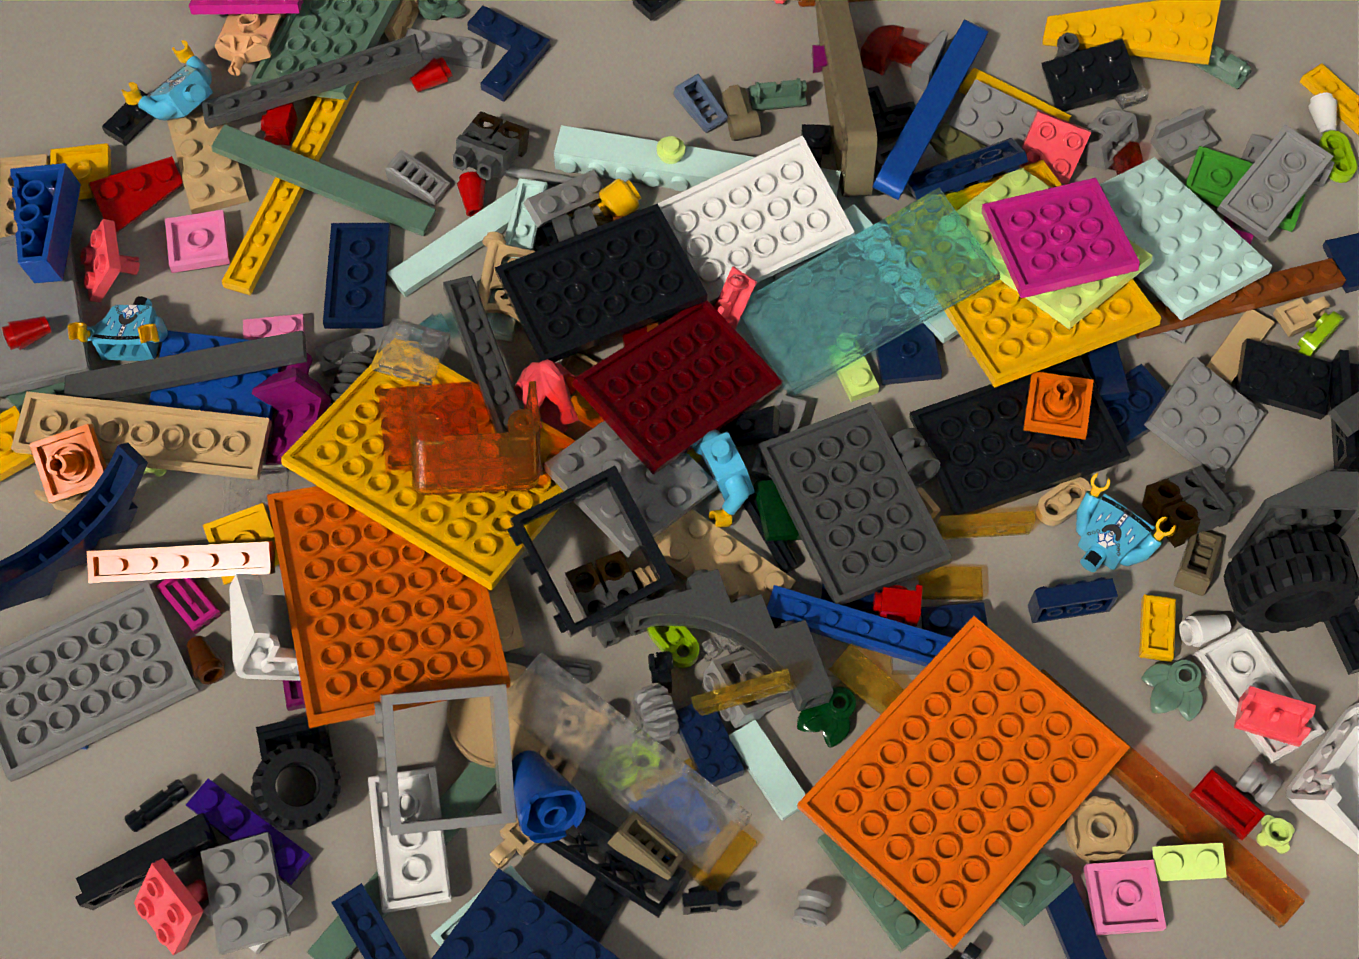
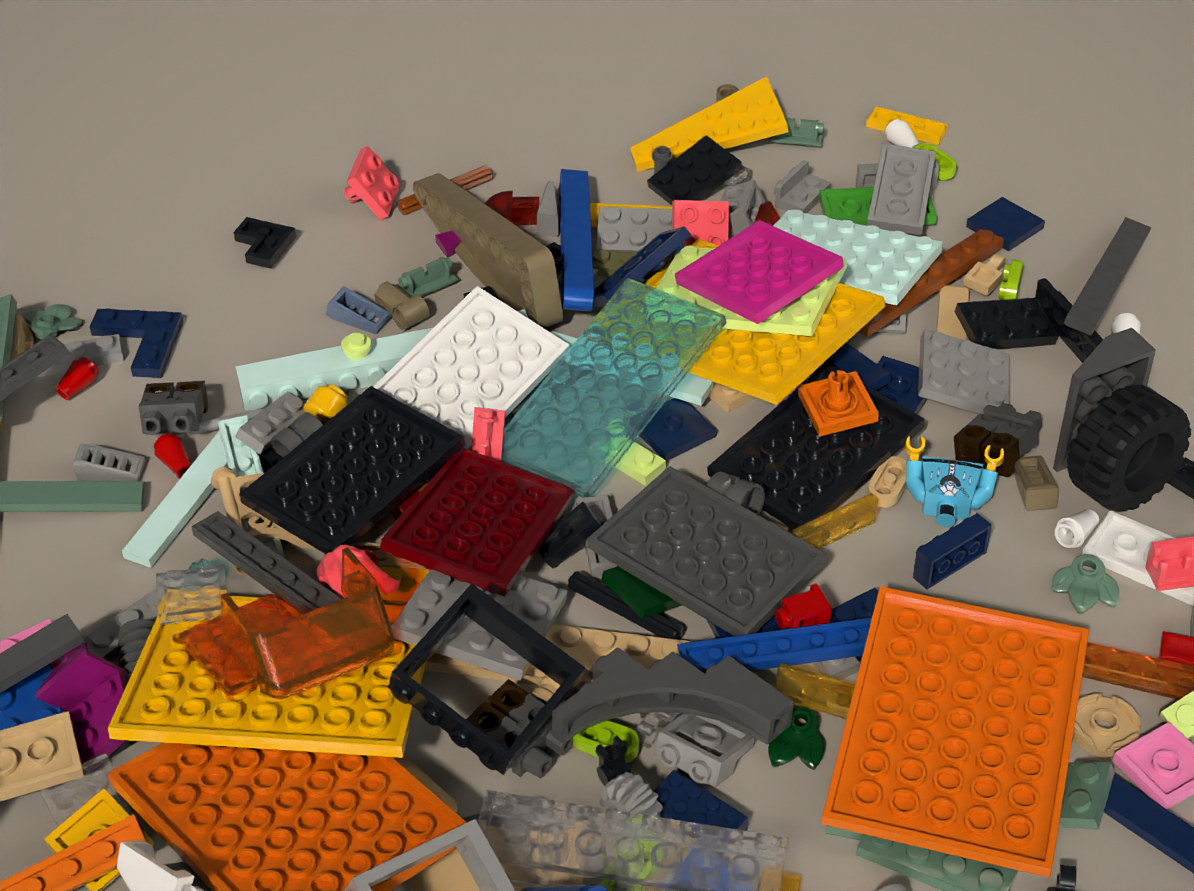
camera: 25 degrees left, 20 degrees down
(357, 276) = (91, 565): dark blue plate -> none
(727, 471) = (572, 568): medium azure torso -> none
(743, 692) = (710, 737): clear yellow tile -> none
(767, 769) = (772, 812): light aqua tile -> none
(952, 583) = (840, 583): clear yellow tile -> none
(1157, 628) = (1038, 544): yellow plate -> none

